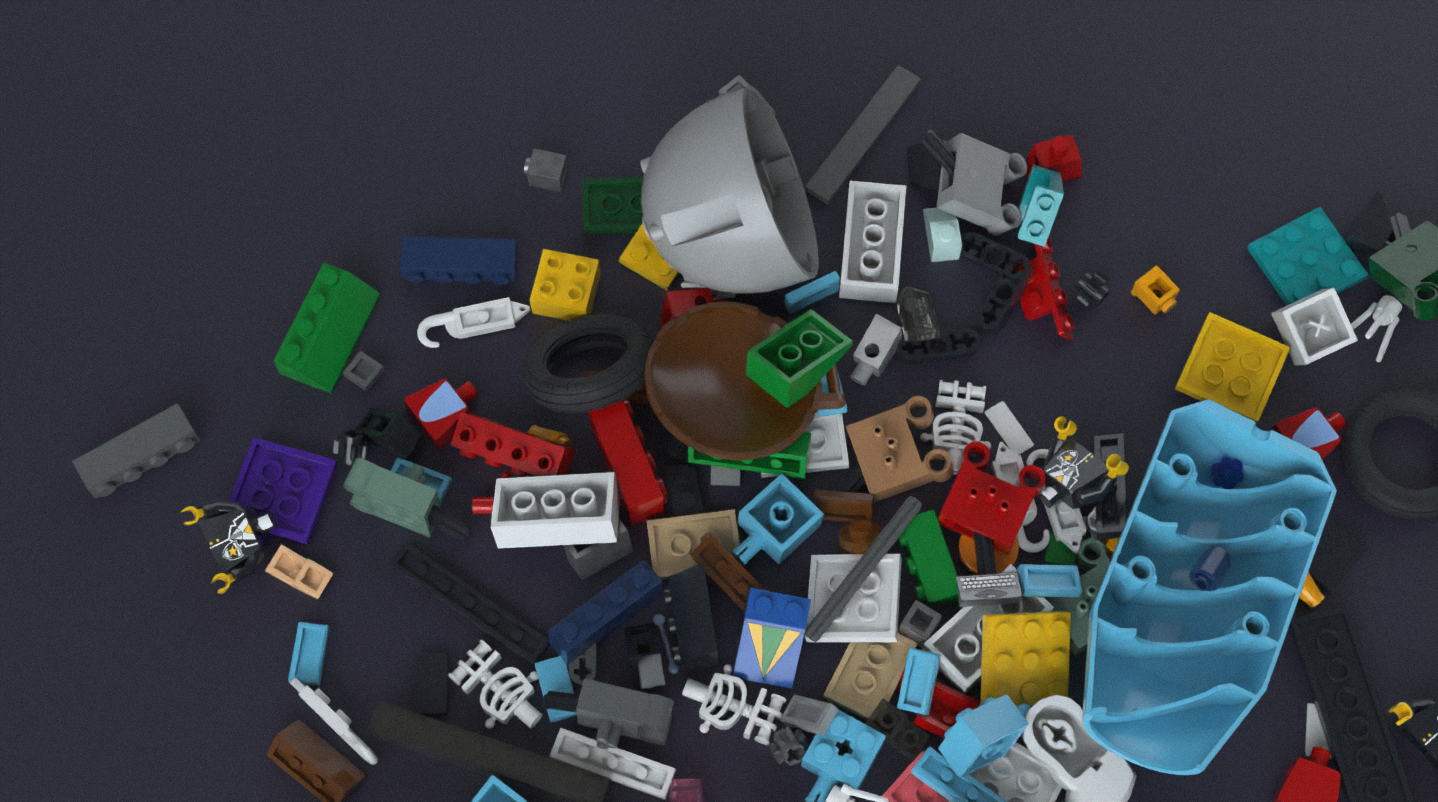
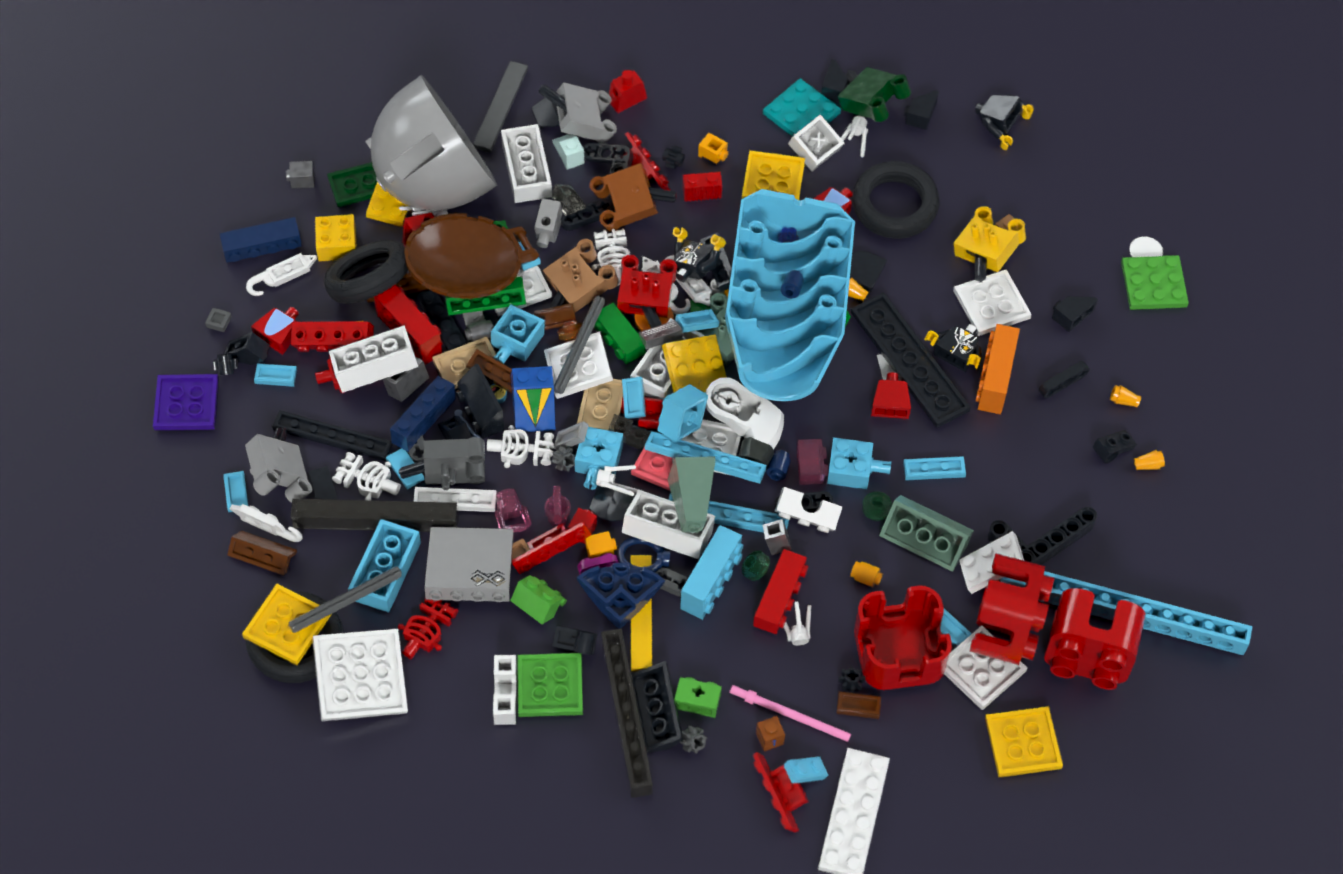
camera: 20 degrees left, 10 degrees down
(136, 451) = (81, 403): dark grey brick -> none
(234, 537) = (164, 432): black torso -> none
(299, 572) = (210, 446): light nougat slope -> none
(326, 328) = (185, 301): green slope -> none
(375, 637) = (277, 463): none -> light grey piece
(401, 499) = (268, 381): sand green piece -> none
(722, 606) = (499, 393): none -> tile
(727, 496) = (479, 330): none -> flat silver brick
(796, 357) = (499, 233): green slope -> none
(812, 292) = (497, 202): medium azure tile -> none
(920, 623) = (623, 366): flat silver brick -> none
(1009, 341) = (630, 195): none -> dark orange piece
(1009, 428) = (645, 249): white sticker -> none
(1040, 204) = (625, 113): teal panel -> none
(1122, 349) = (702, 186): none -> red brick

